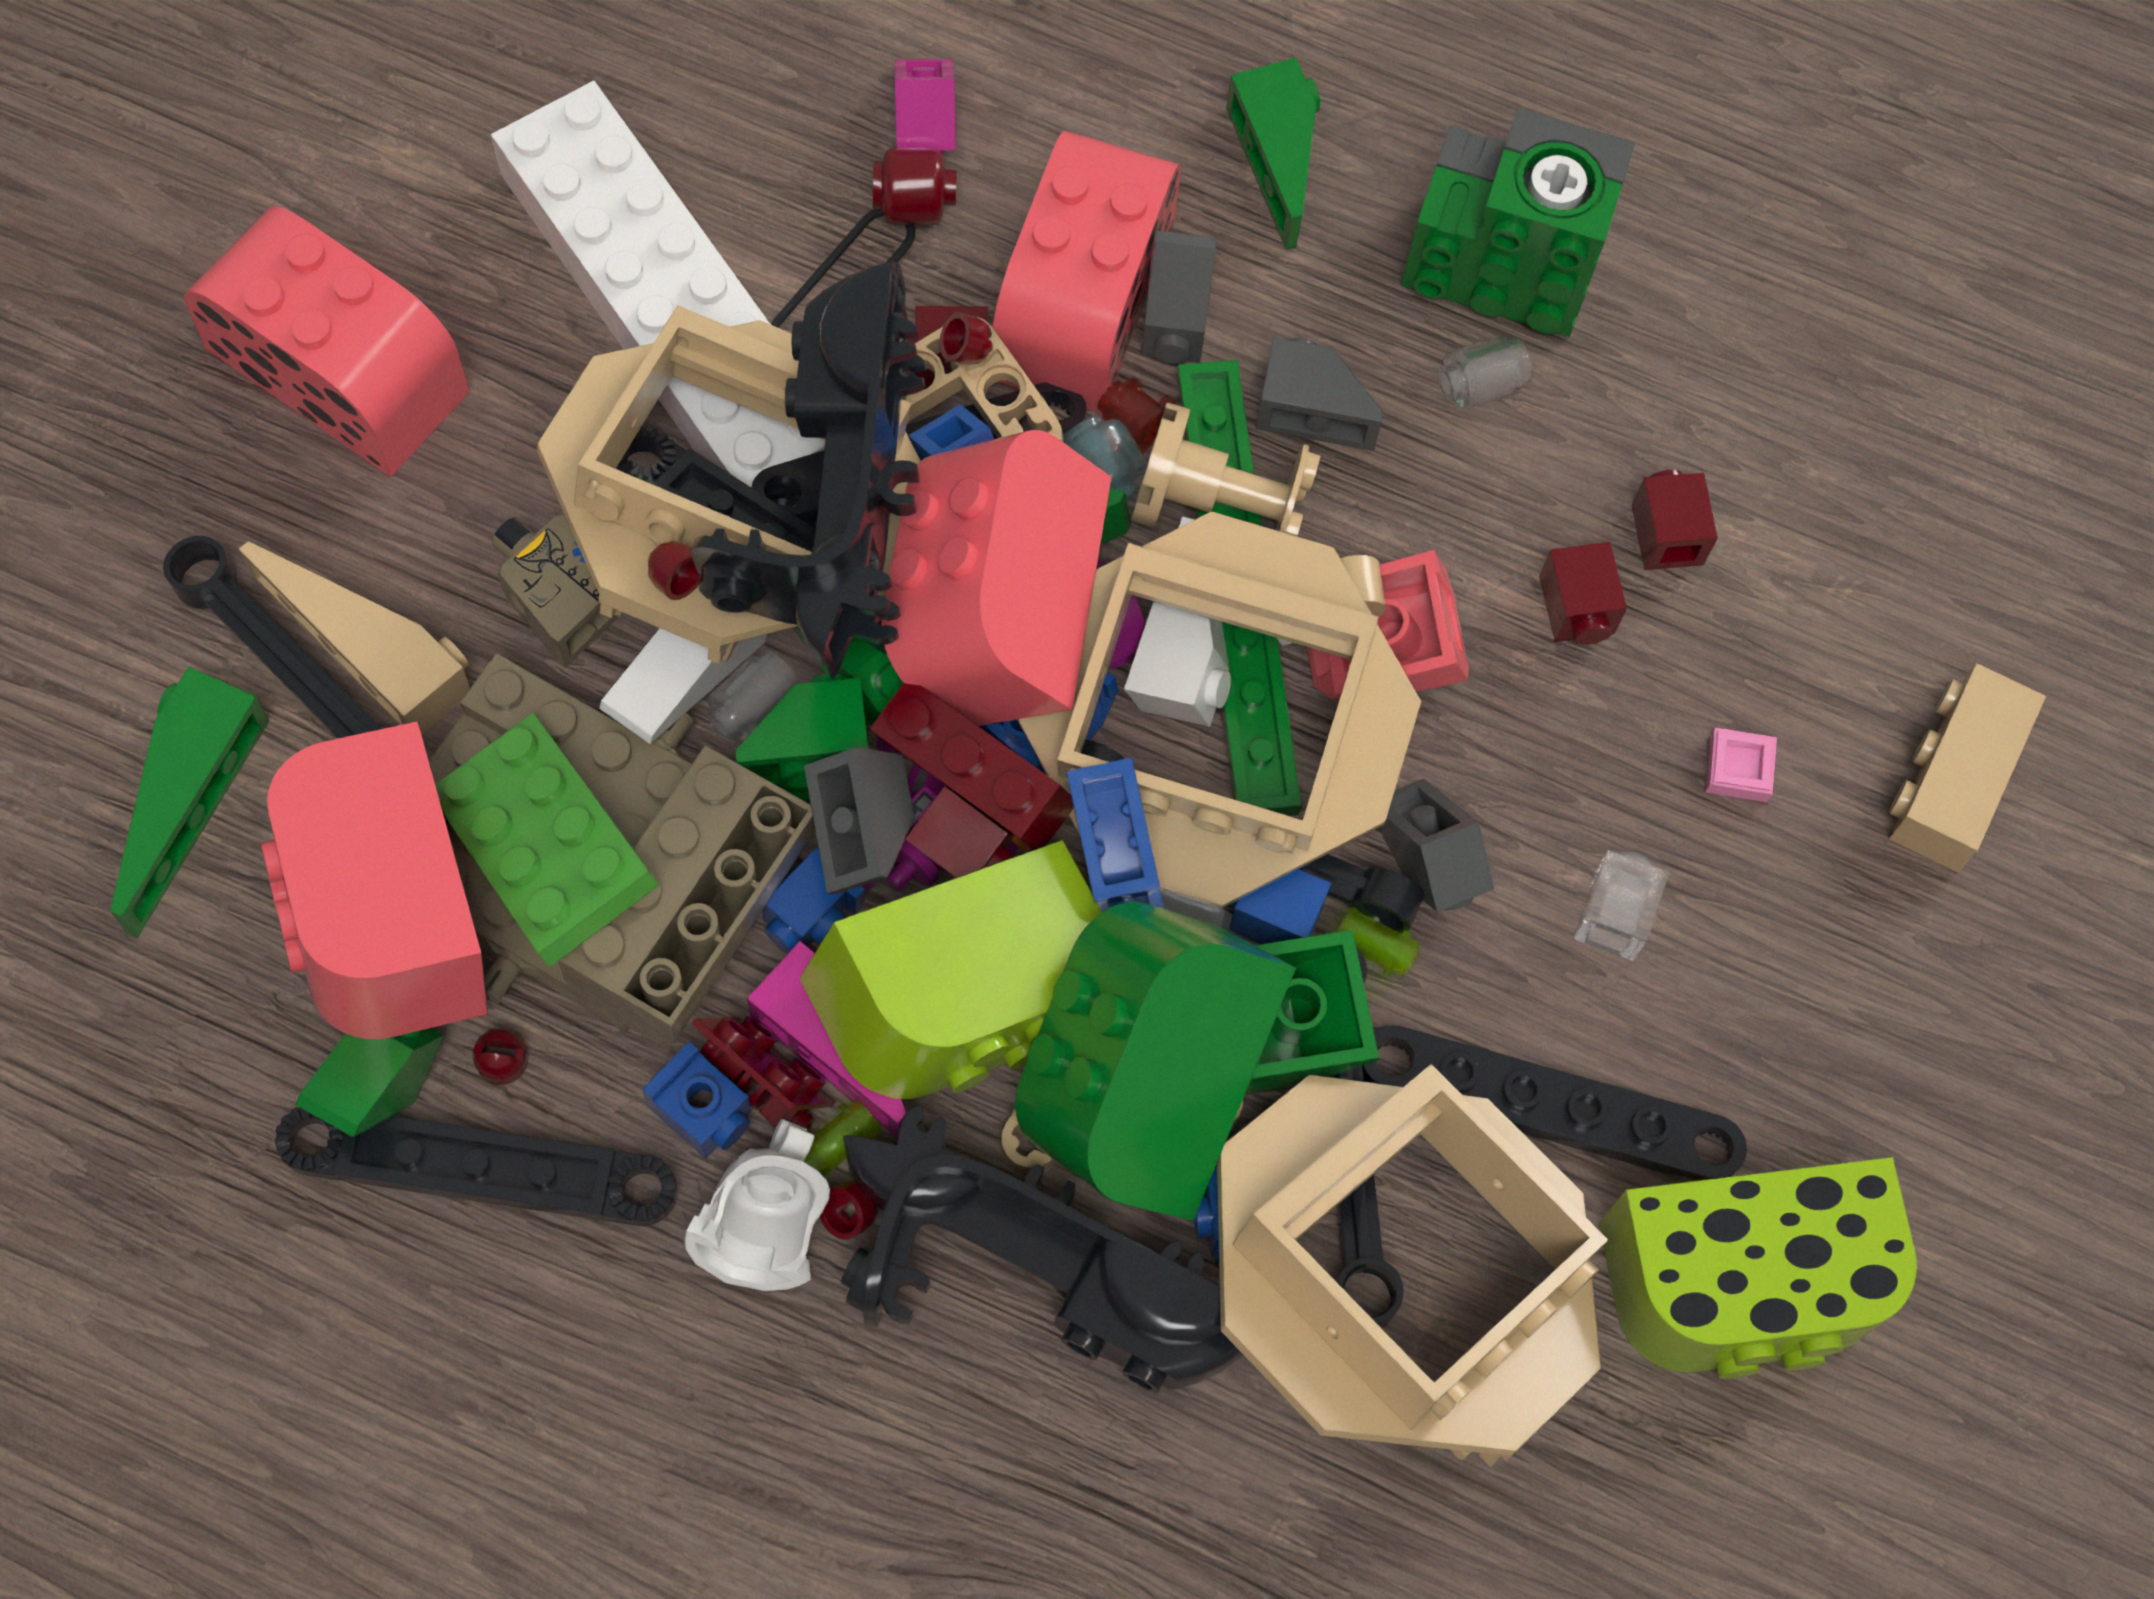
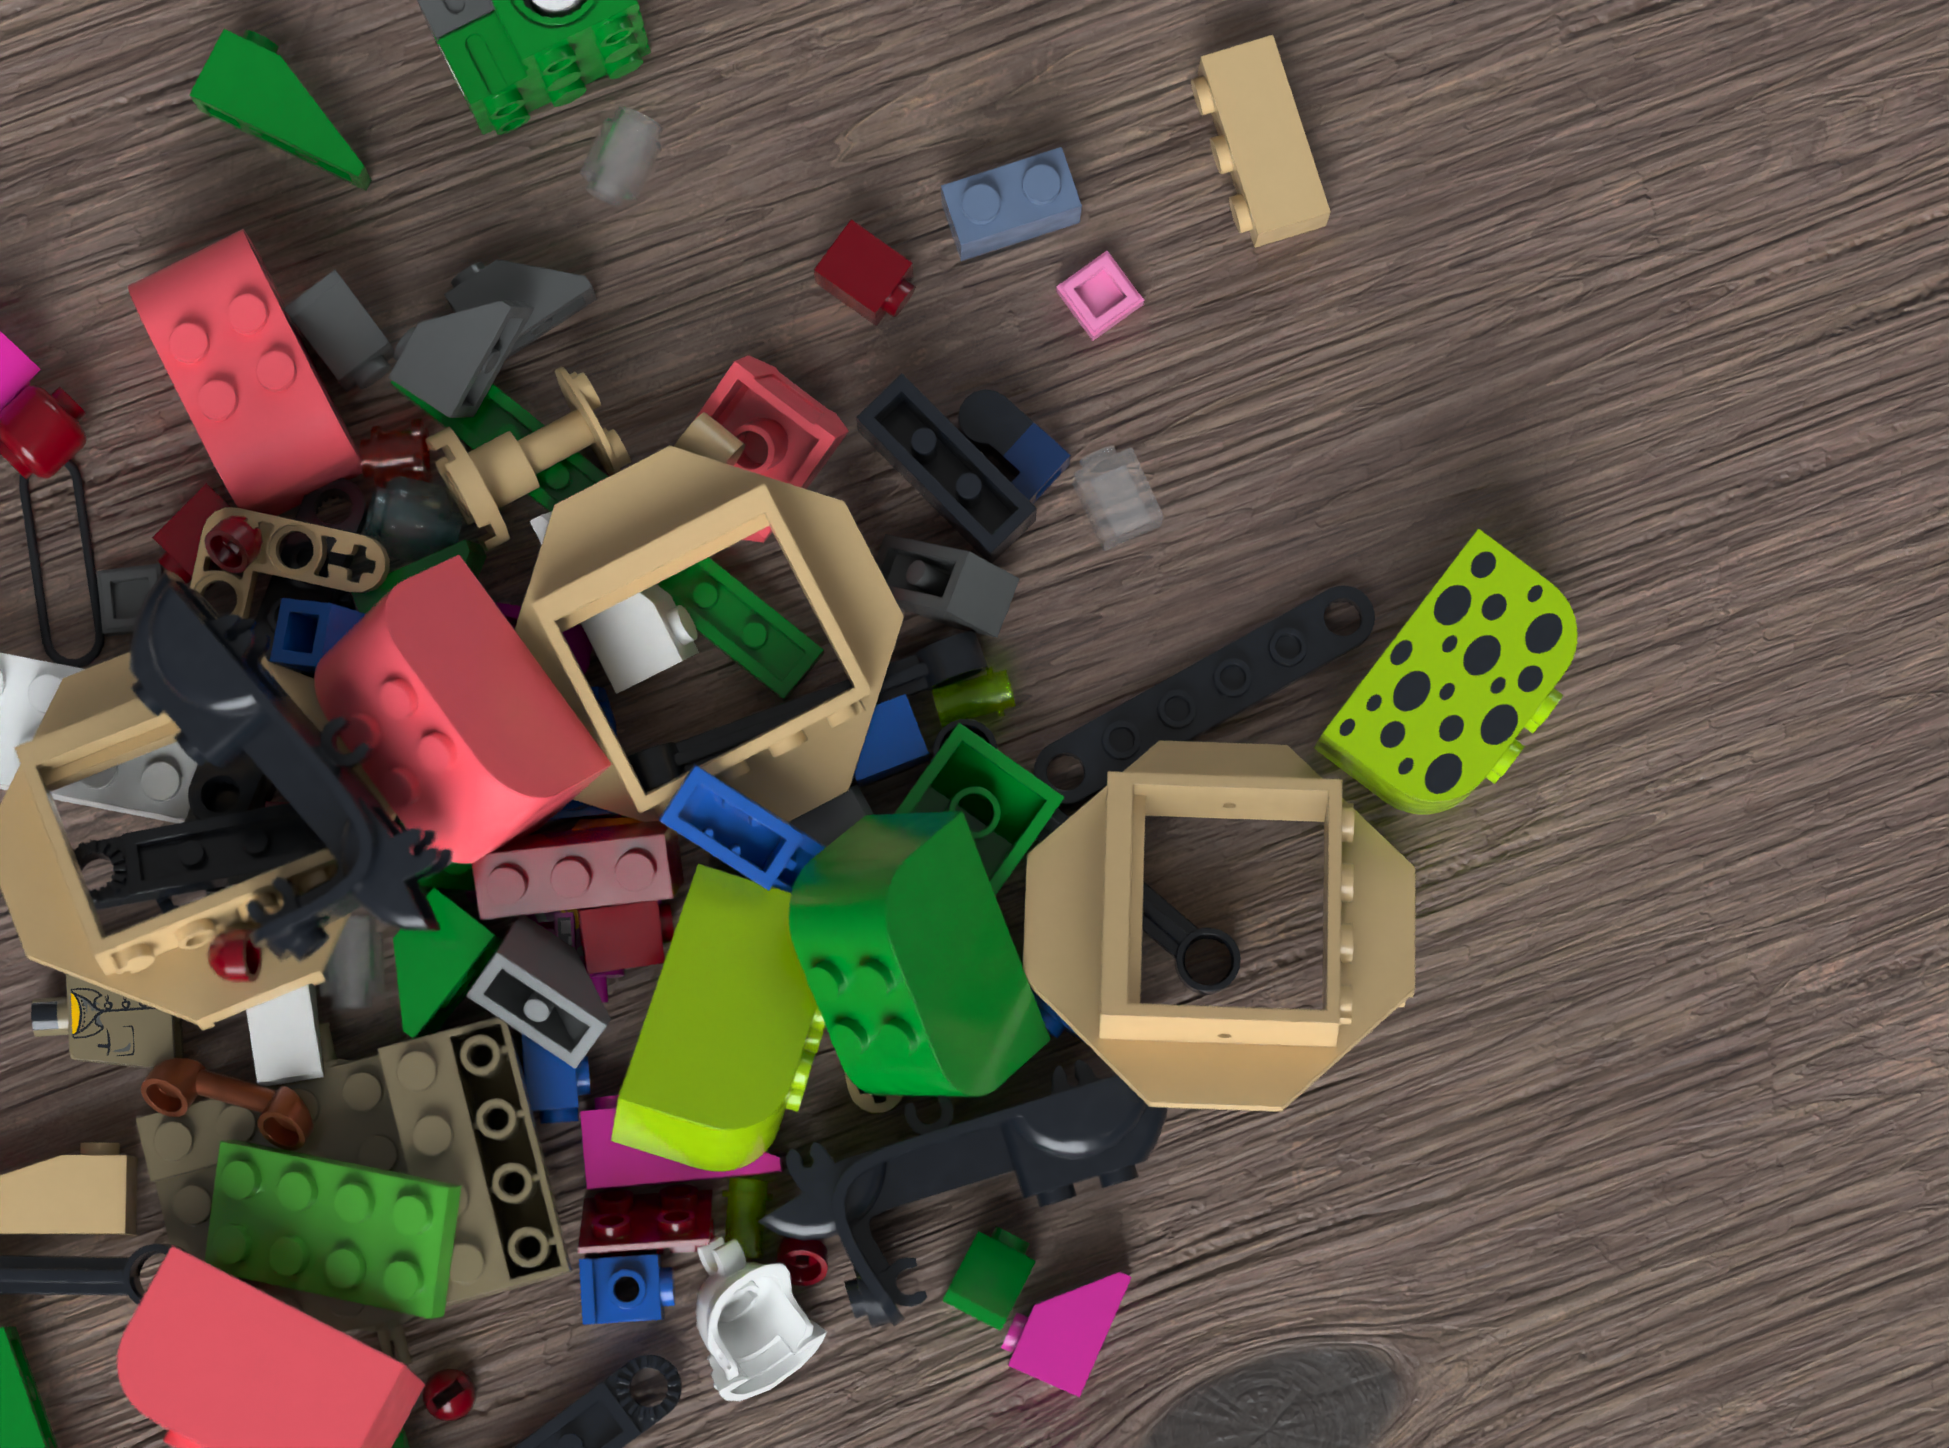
camera: 40 degrees left, 15 degrees up
(552, 654) = (178, 1081): none -> copper bar
(968, 1357) = (991, 1277): none -> green slope
(987, 1459) = (1066, 1333): none -> dark pink slope
(1248, 374) = (458, 355): none -> dark grey slope
(1515, 765) = (946, 468): none -> black brick
(1582, 800) = (1013, 440): none -> leg
(1674, 520) = (874, 143): dark red brick -> none
(1736, 641) = (1011, 203): none -> sand blue brick

